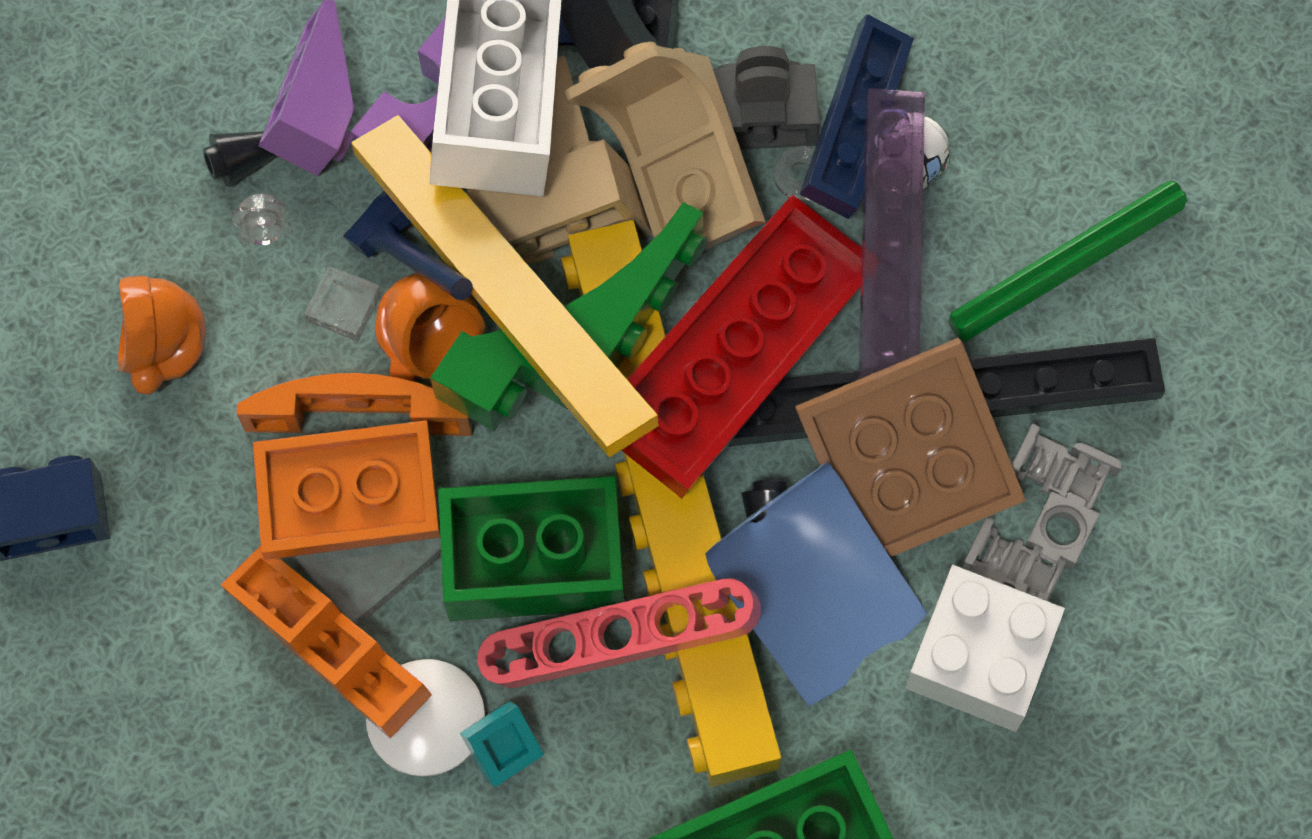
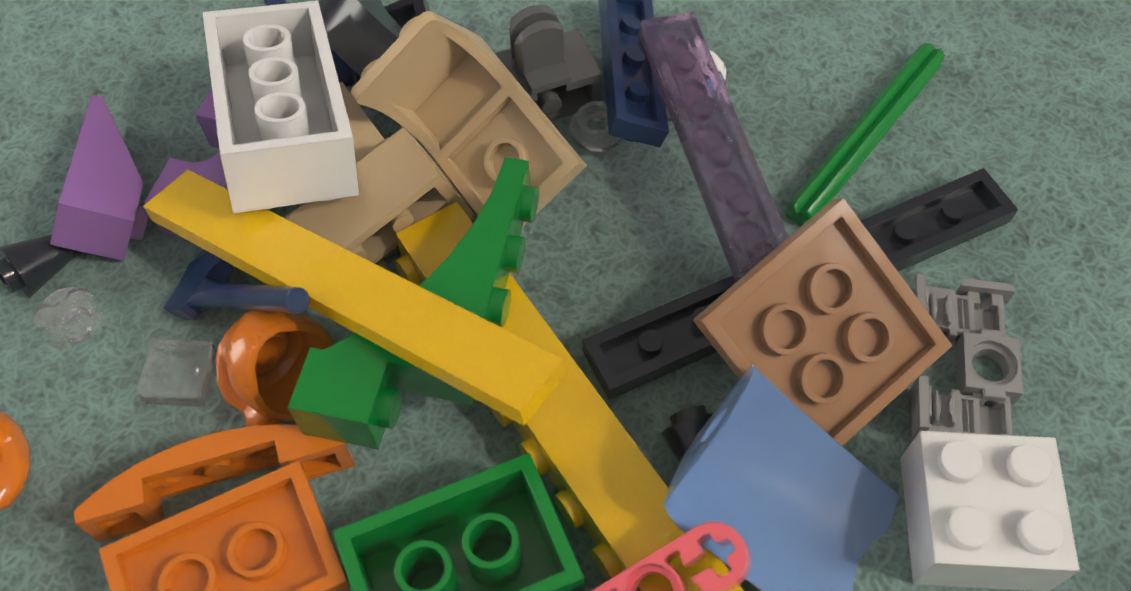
camera: 20 degrees left, 10 degrees down
(741, 341) = (607, 289): red plate -> none

